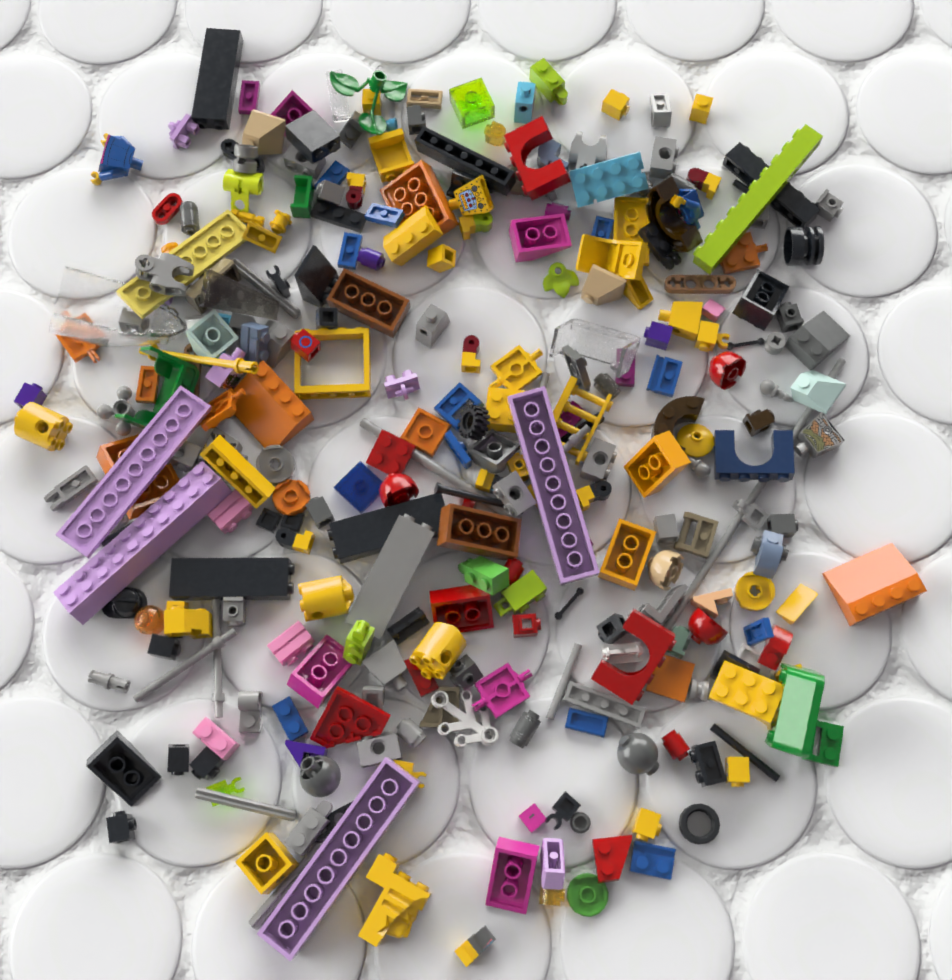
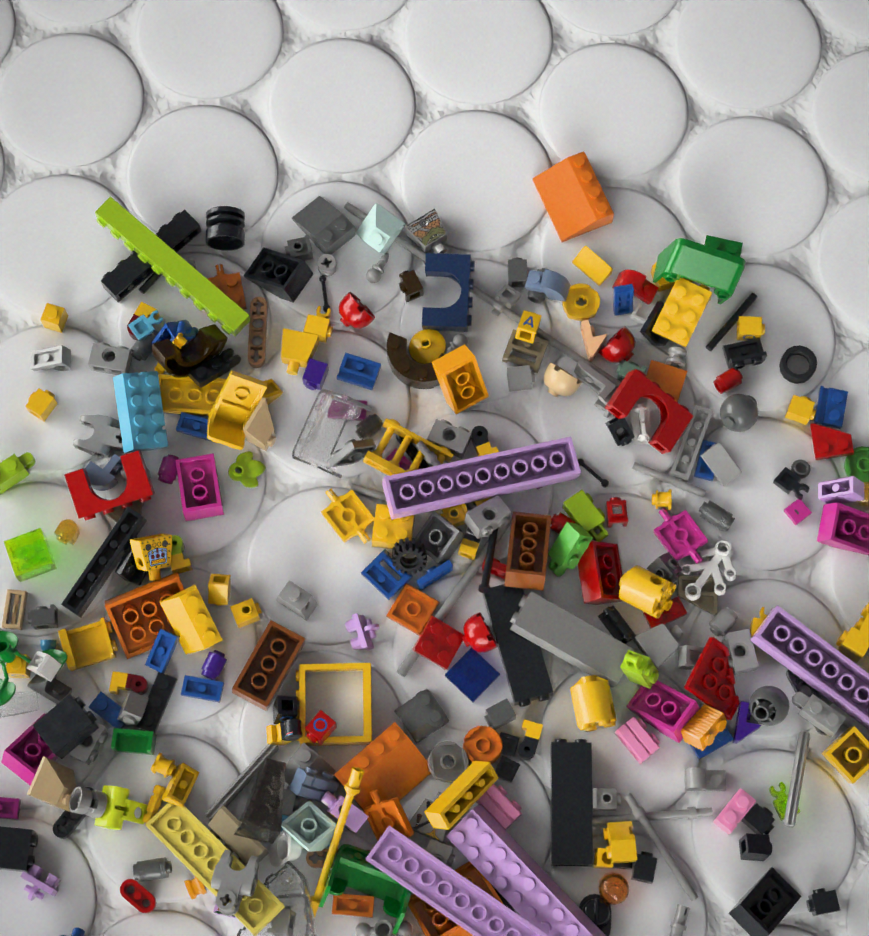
camera: 90 degrees left, 0 degrees up
(281, 284) = (240, 762): black plate -> none
(300, 708) = (704, 727): none -> light orange brick
(305, 316) = (284, 732): none -> leg
(316, 278) = (241, 719): black slope -> none
(321, 441) = (422, 715): none -> dark grey slope
(364, 114) = (44, 665): none -> white slope
(420, 283) = (246, 612): none -> yellow brick
(470, 349) = (329, 562): leg -> none
(524, 97) = (31, 498): medium azure torso -> none
(540, 672) = (662, 499): none -> yellow brick
(580, 733) = (721, 463): none -> light grey slope
(627, 554) = (546, 413): light orange brick -> none
(695, 178) = (144, 326): none -> medium azure plate
(712, 310) = (287, 320): bright pink slope -> none
(720, 534) = (528, 326): none -> yellow brick
(829, 206) = (173, 206): light grey brick -> none

